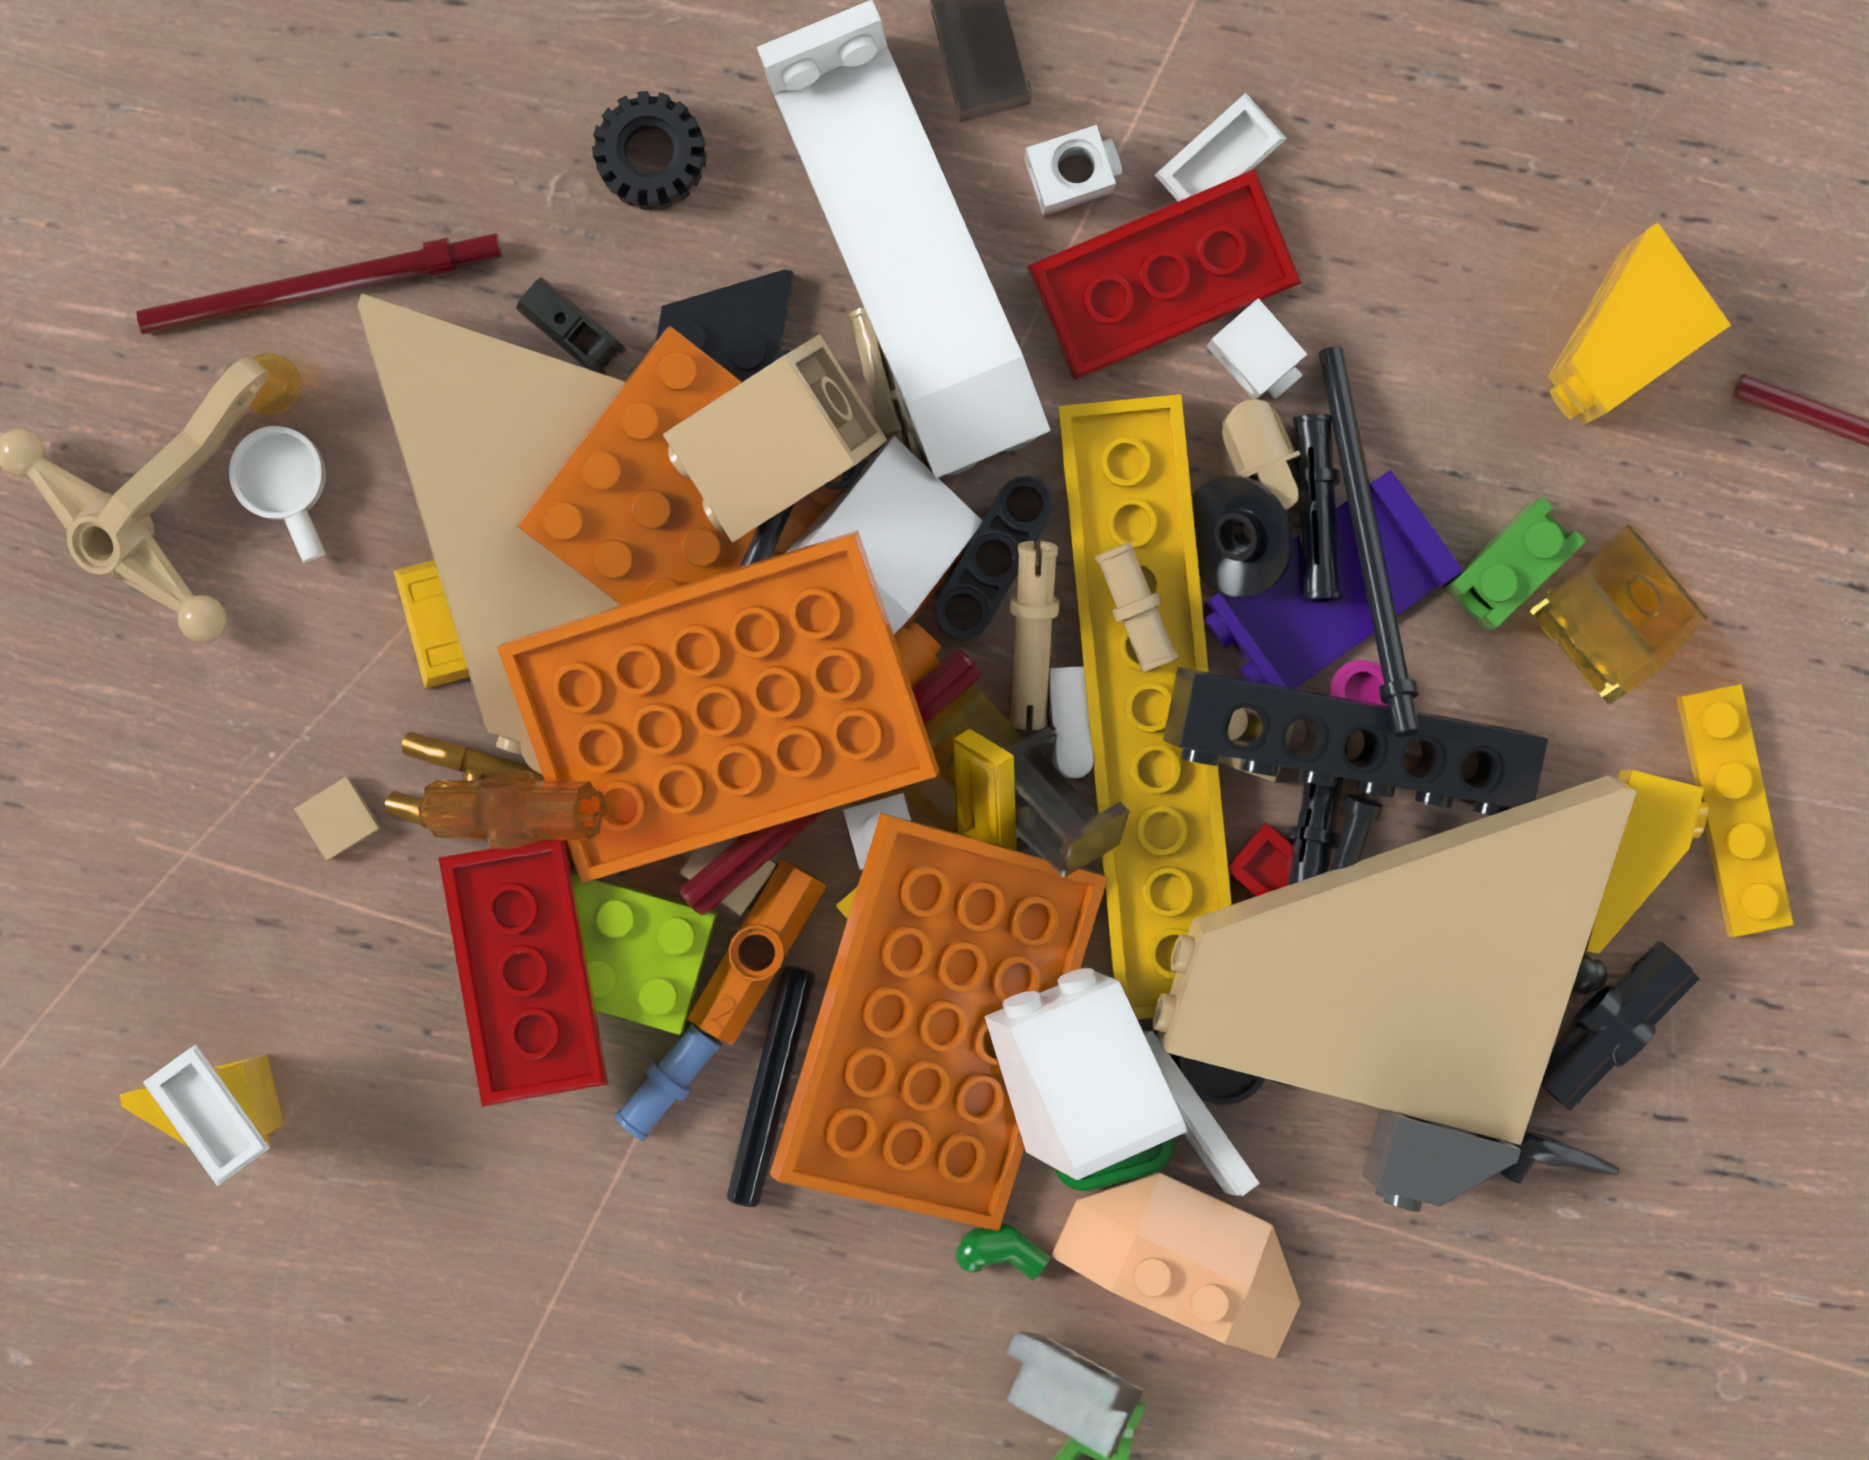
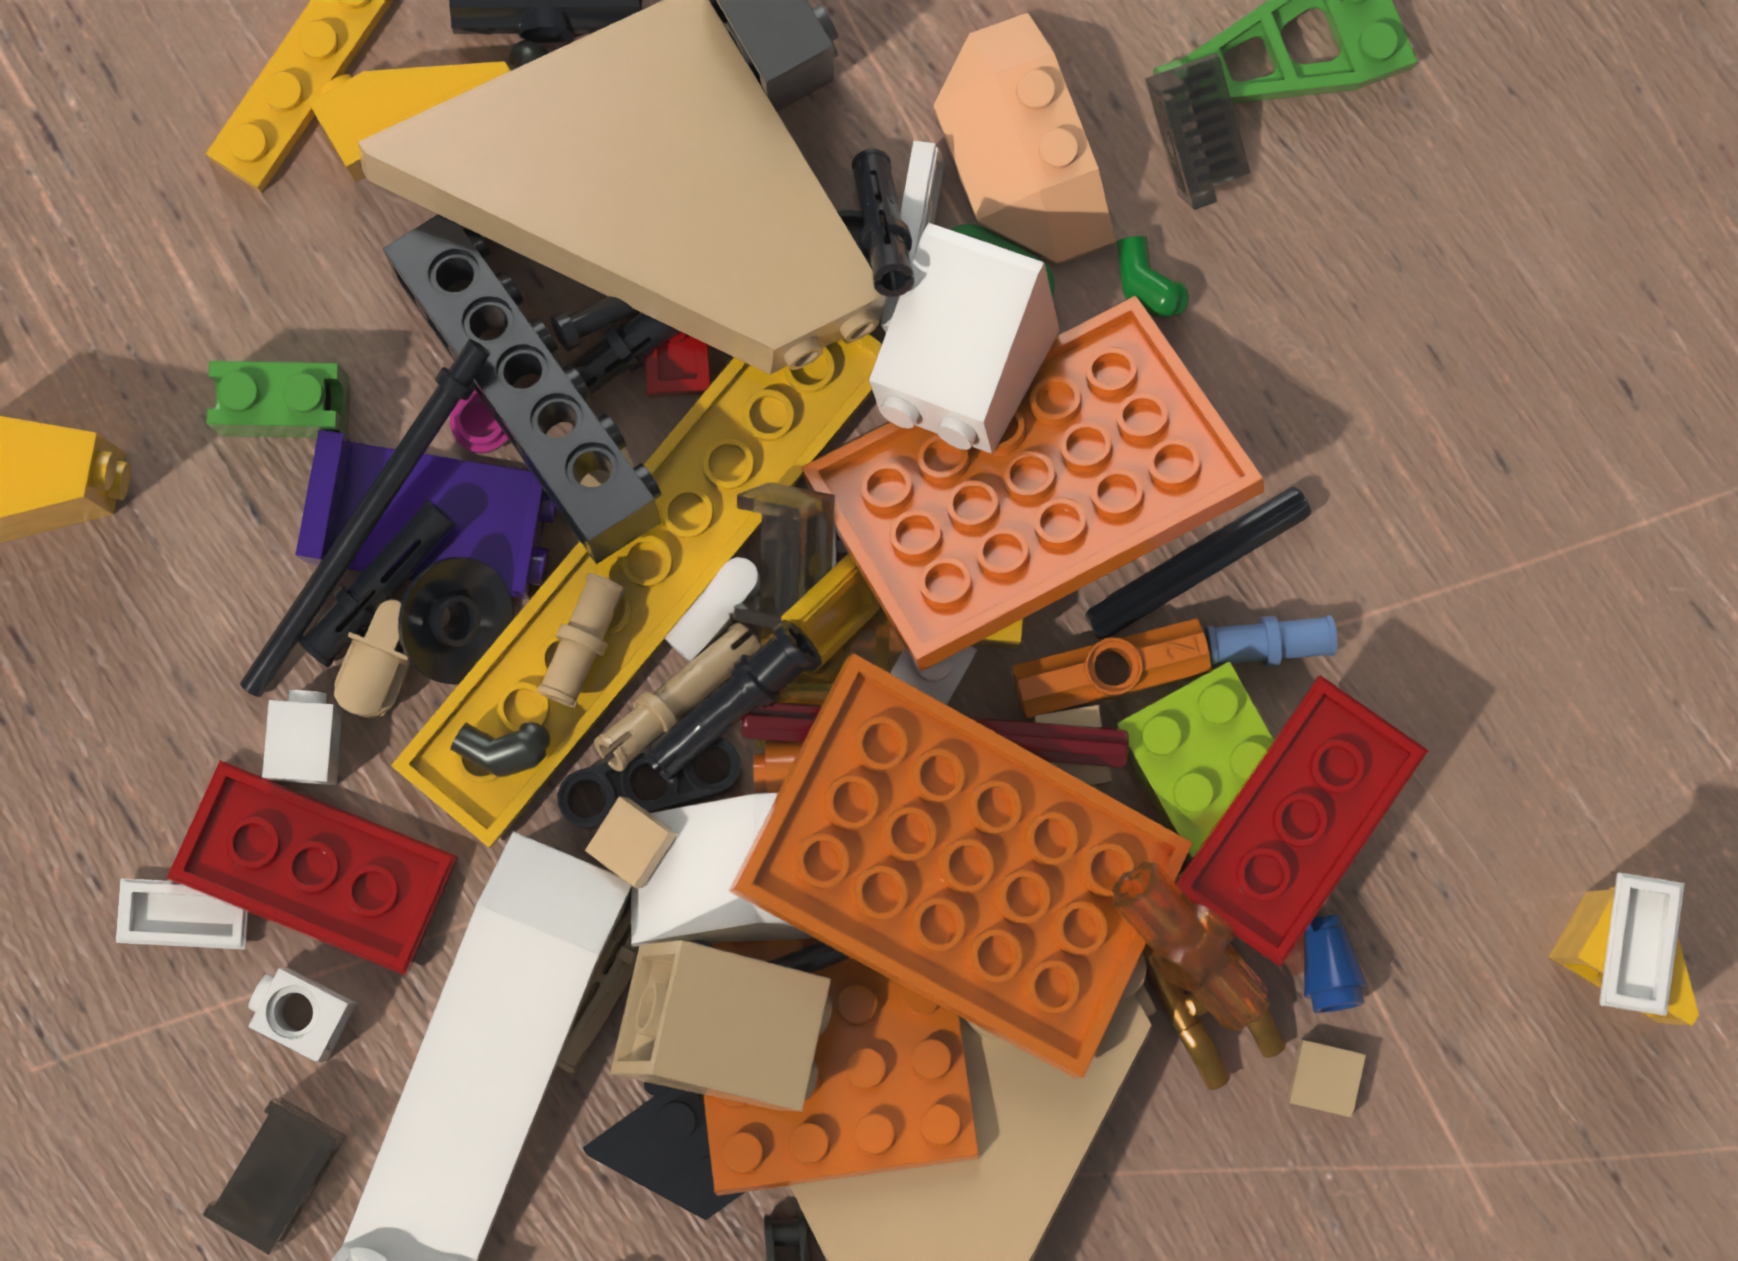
camera: 135 degrees left, 5 degrees down
(407, 897) = (1331, 967): none -> blue cone
(430, 625) = (1114, 1154): yellow tile -> none
(963, 503) = (631, 842): none -> tan tile
(986, 692) = (753, 683): none -> black pin
(1109, 479) = (505, 754): none -> pearl dark grey arm
(1186, 1075) = (888, 261): none -> black pin
(1619, 615) = (241, 288): clear yellow slope -> none

